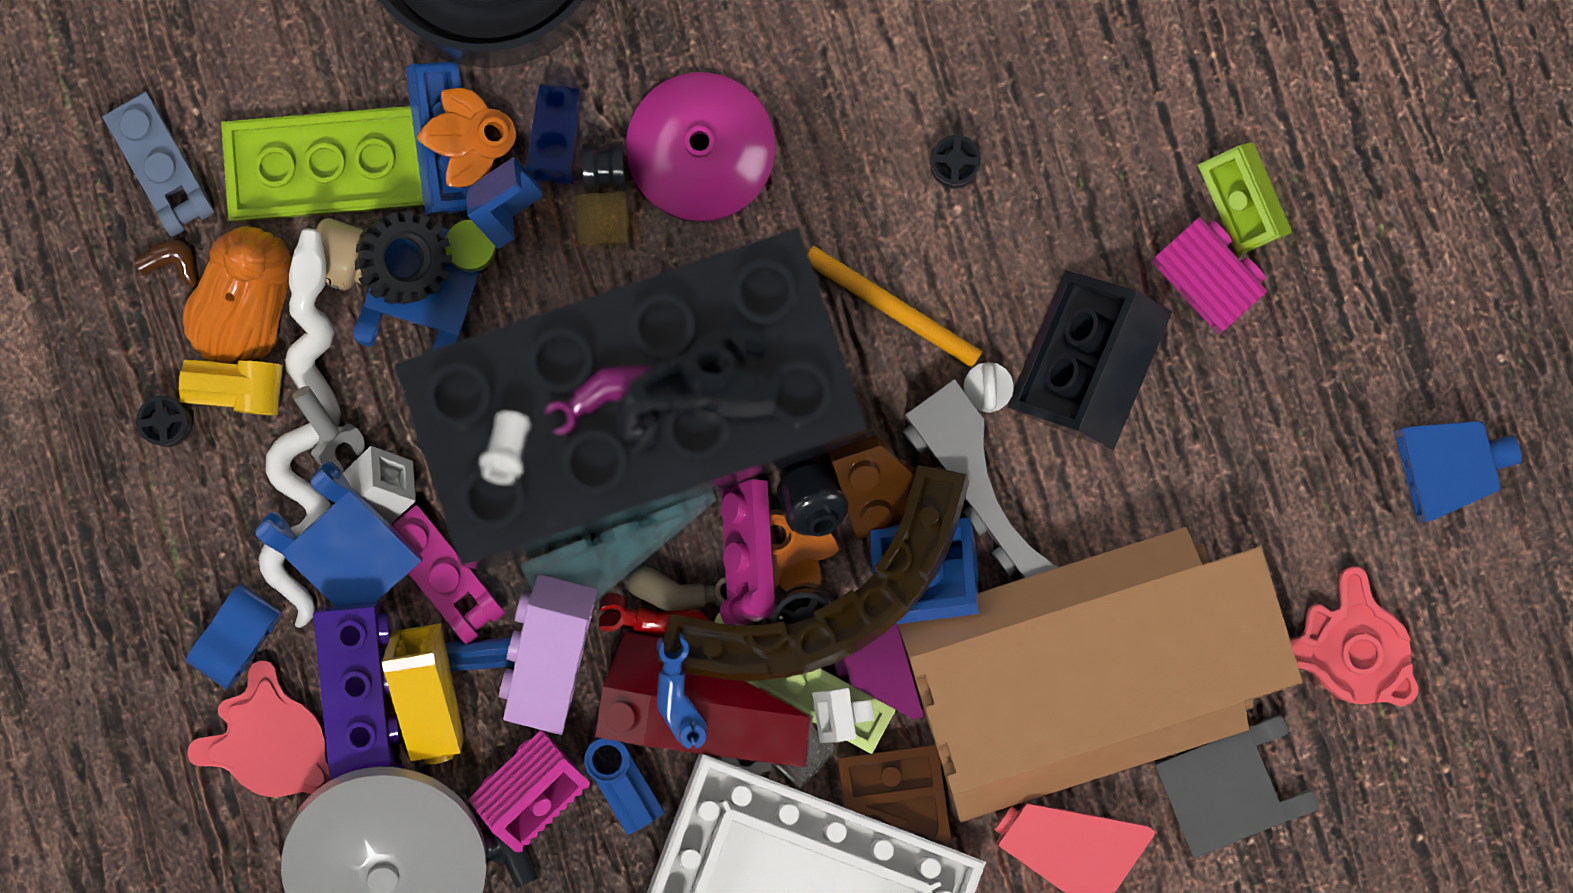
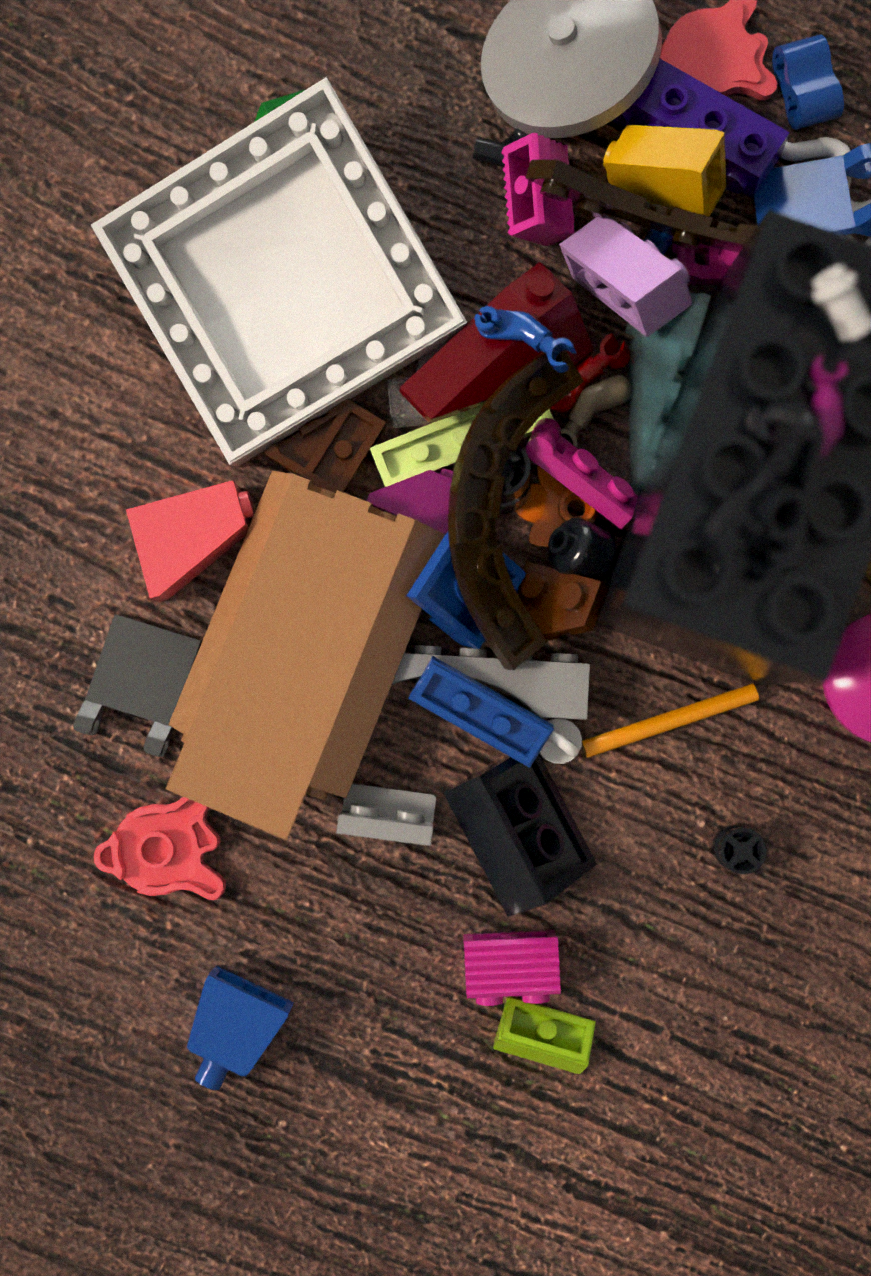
camera: 125 degrees right, 0 degrees up
(462, 632) = (597, 197): none -> dark brown plate
(624, 788) = (486, 260): blue piece -> none
(838, 714) = (415, 442): white tile -> none
(1021, 473) = (481, 711): none -> blue tile
(1170, 481) = (387, 814): none -> light grey bracket

